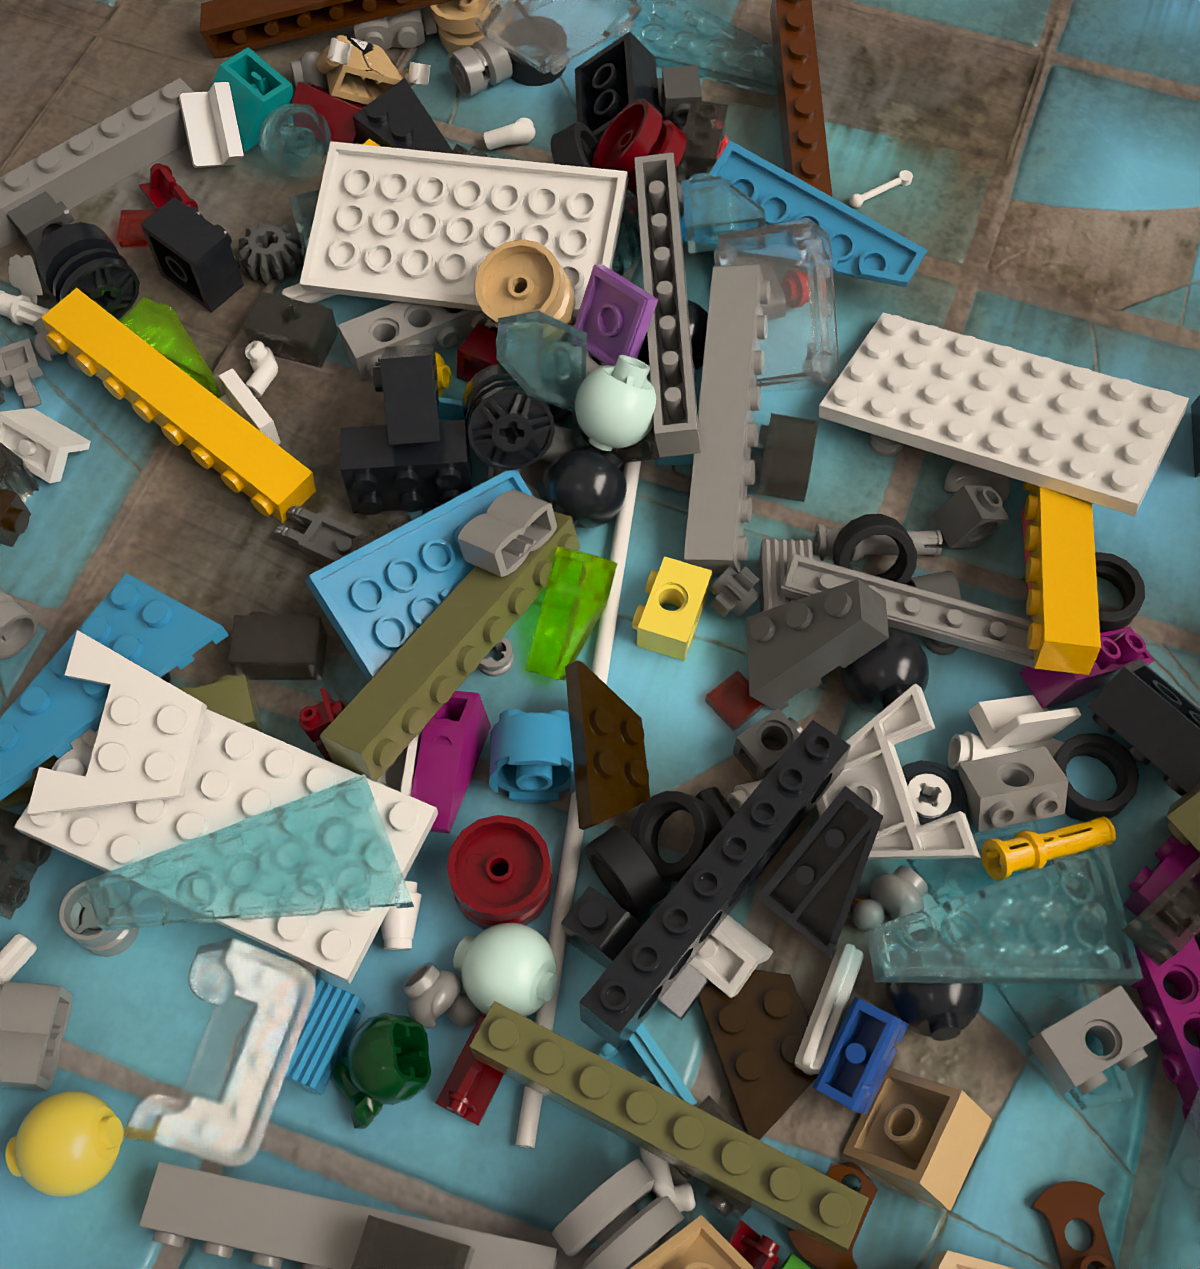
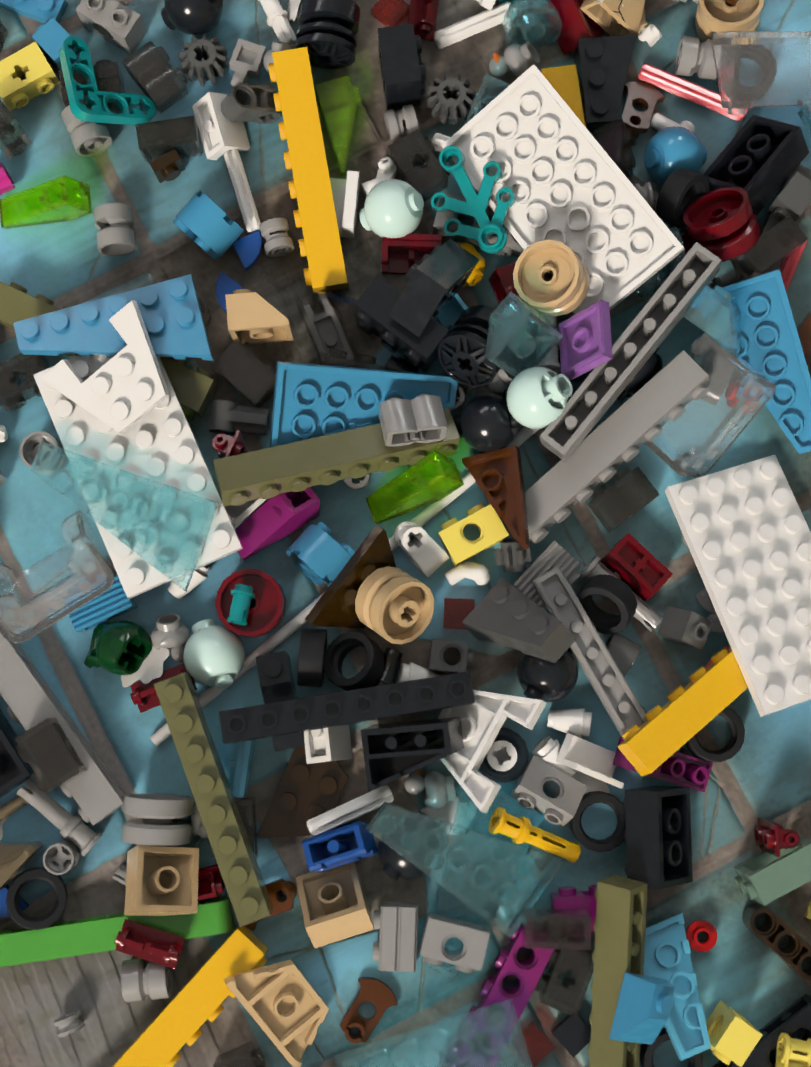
camera: 40 degrees right, 20 degrees up
(57, 396) = (250, 104): none -> dark grey piece
(105, 532) = (207, 225): none -> dark azure brick
(117, 484) = (242, 190): none -> white axle
(171, 532) = (249, 249): none -> blue tile
(184, 587) = (224, 286): none -> blue tile
(197, 497) = (276, 236): none -> light grey wheel
(235, 186) = (470, 26): none -> white axle
(235, 305) = (394, 123): none -> light grey wheel
(243, 575) = (255, 320): none -> tan slope
(287, 700) = (229, 417): none -> dark grey piece
(299, 376) = (392, 209): none -> light aqua brick
(303, 175) = (515, 57): none -> light grey animal
(317, 490) = (338, 296): none -> dark blue sticker
(349, 404) = (404, 252): none -> dark red hinge
(382, 302) = (476, 204): none -> teal plant
(445, 1060) = (150, 669): none -> white sticker
(464, 128) = (640, 93): none -> reddish brown piece
(494, 875) = (240, 604): none -> teal pin
(500, 98) = (685, 89): none -> coral axle
(529, 136) = (672, 150): none -> dark azure brick
(632, 663) = (422, 550): none -> white piece
(657, 527) = (501, 480): none -> reddish brown wing
(663, 733) = (394, 605): none -> tan wheel
(701, 648) = (469, 570): none -> white arm
(854, 496) = (636, 567): none -> dark red hinge
(956, 701) = (570, 721): none -> white cone
(1025, 1106) = (397, 936): none -> light grey brick

